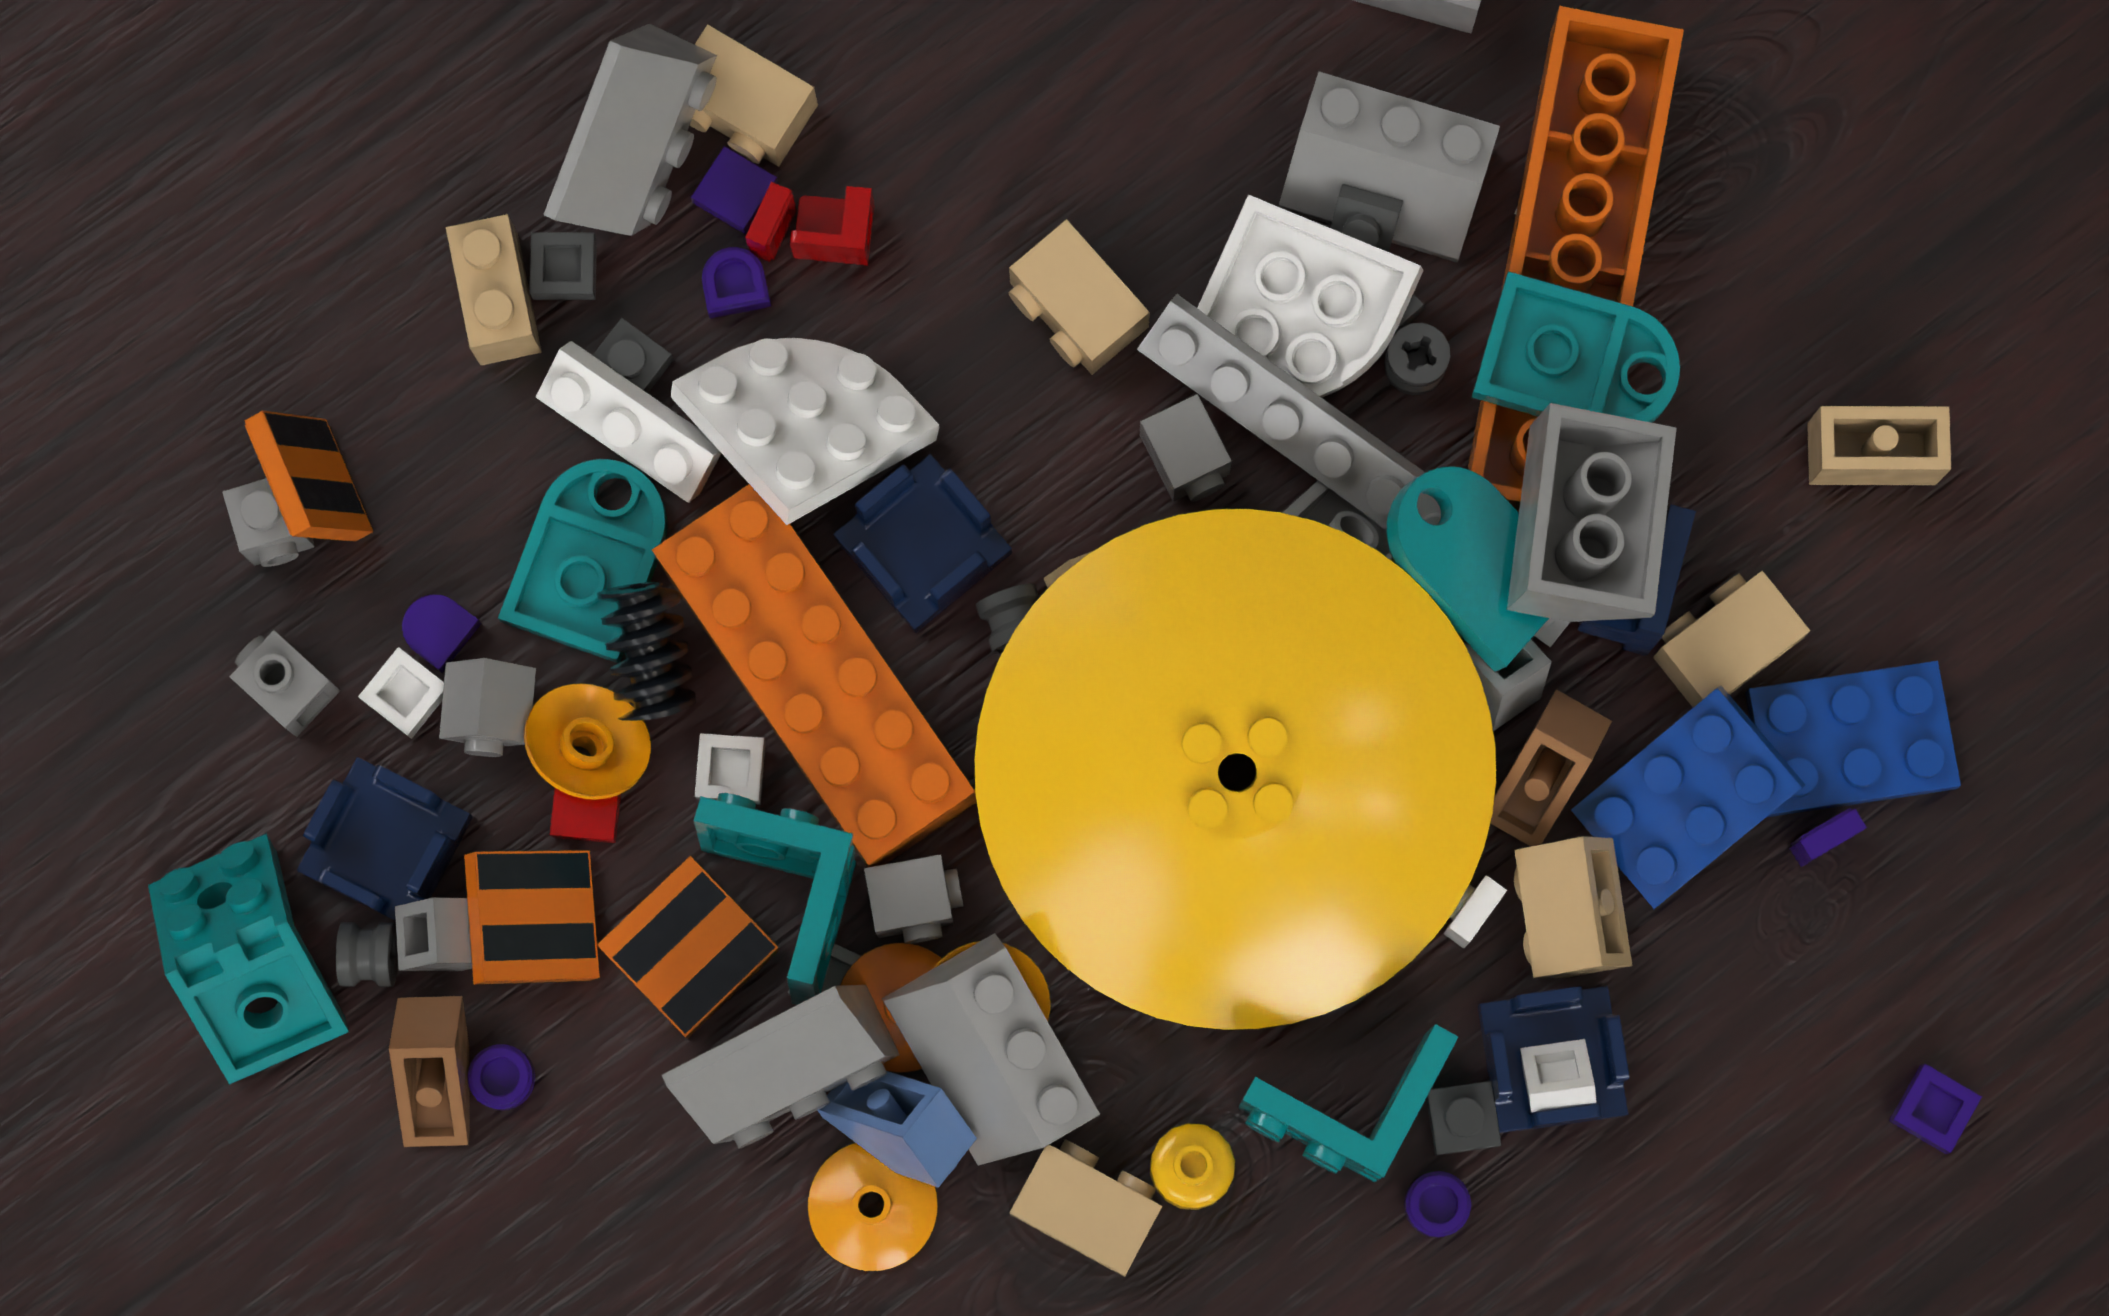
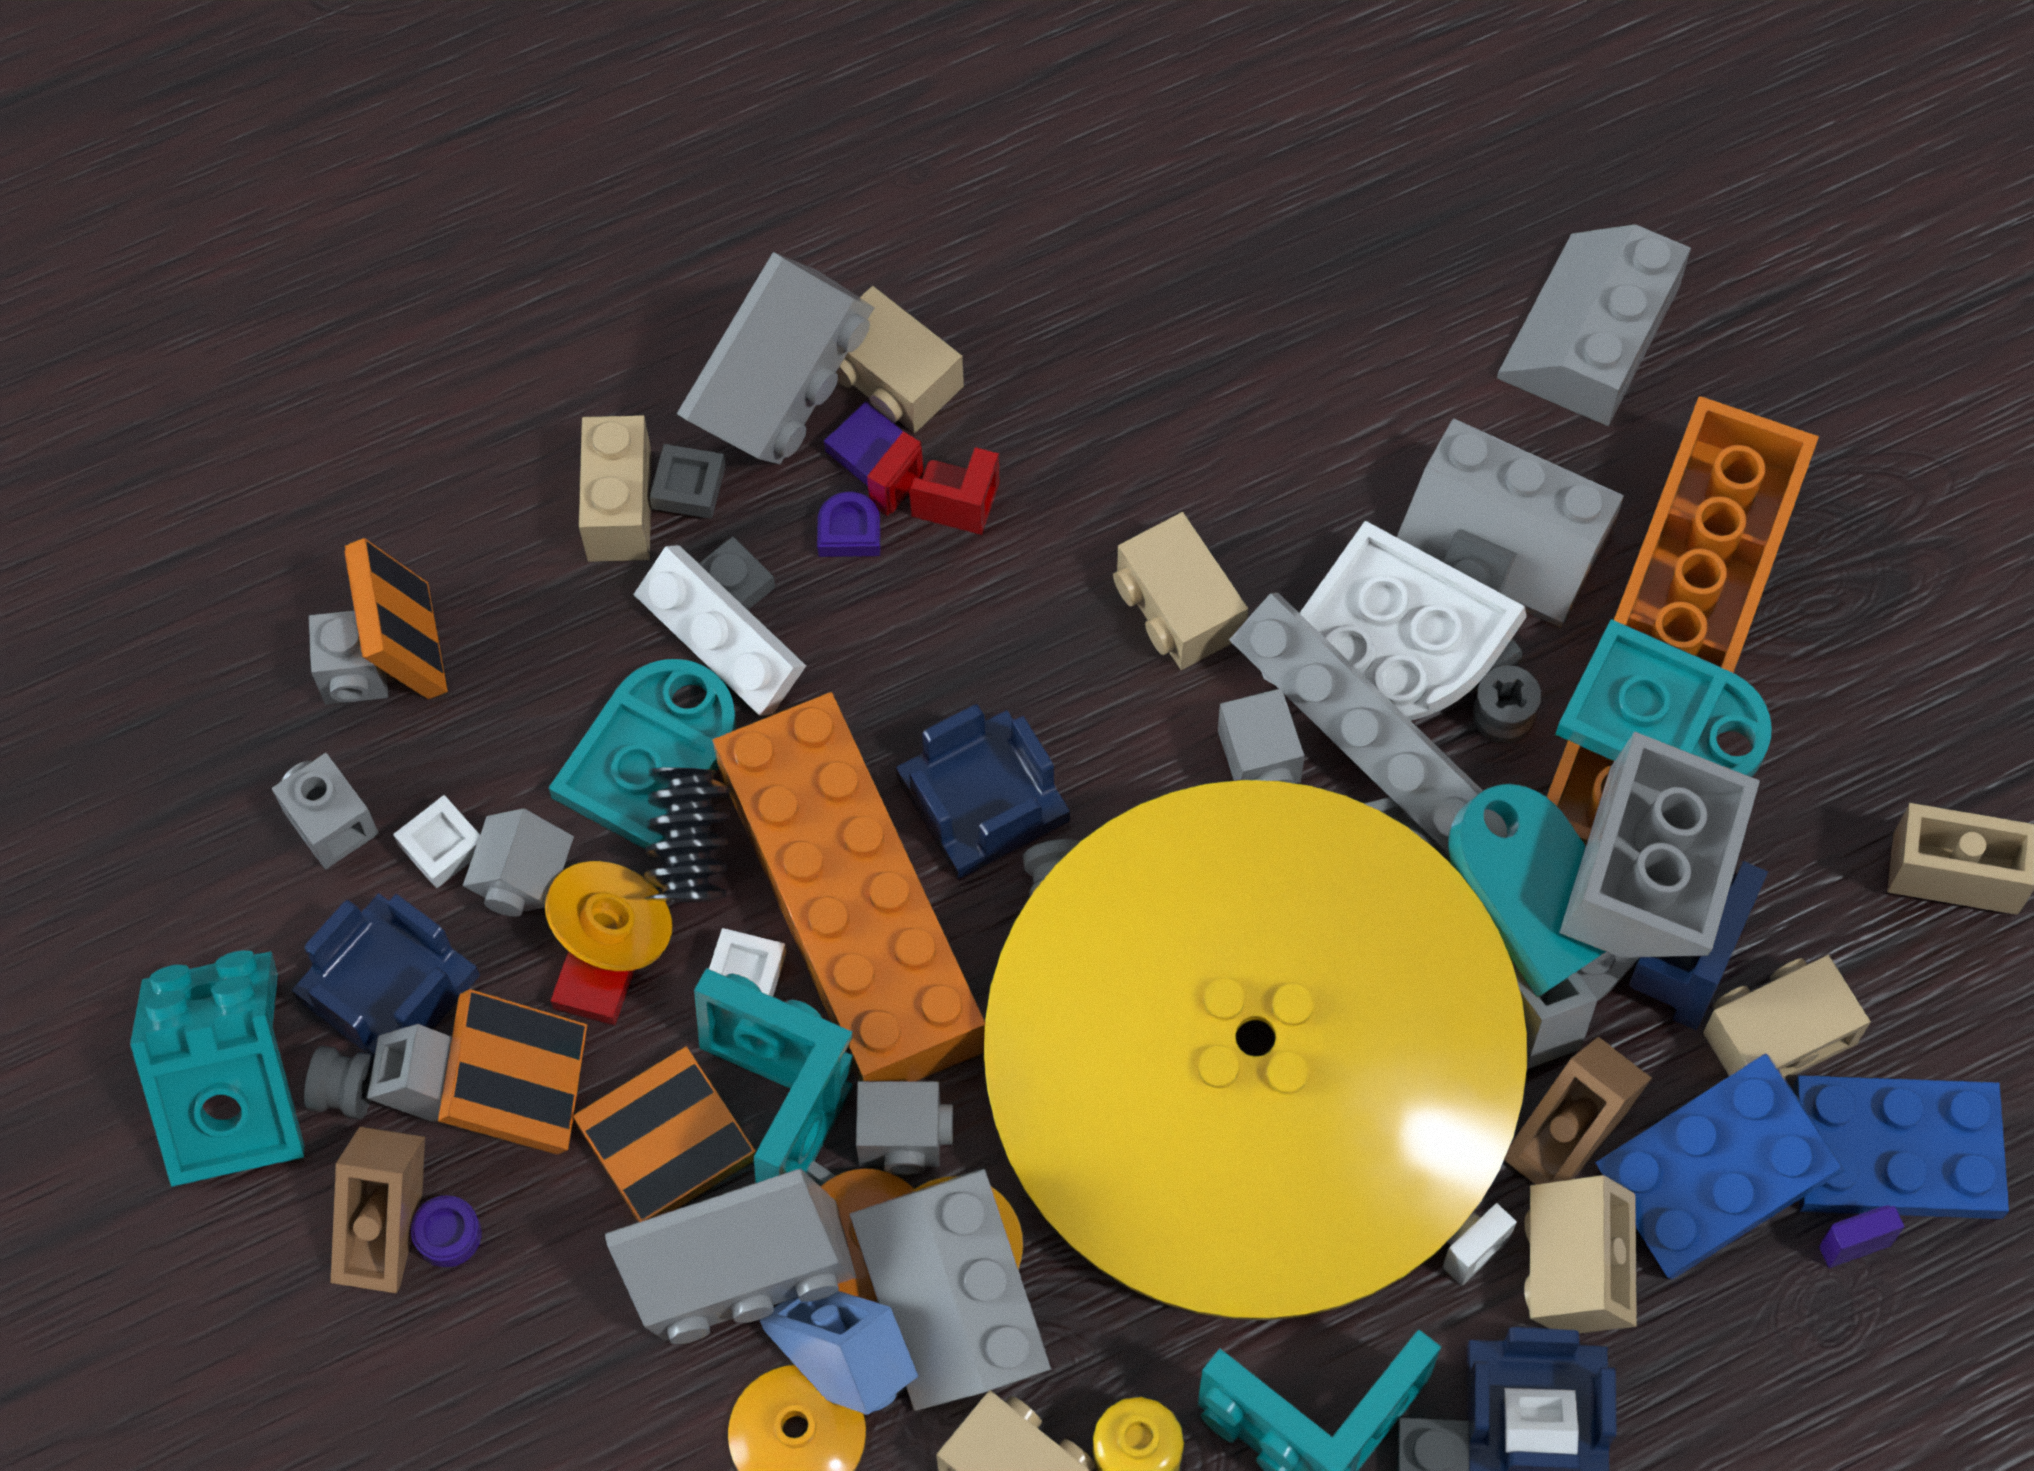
camera: 10 degrees right, 15 degrees down
(438, 629) = (488, 787): dark purple tile -> none
(803, 419) = (888, 650): white plate -> none

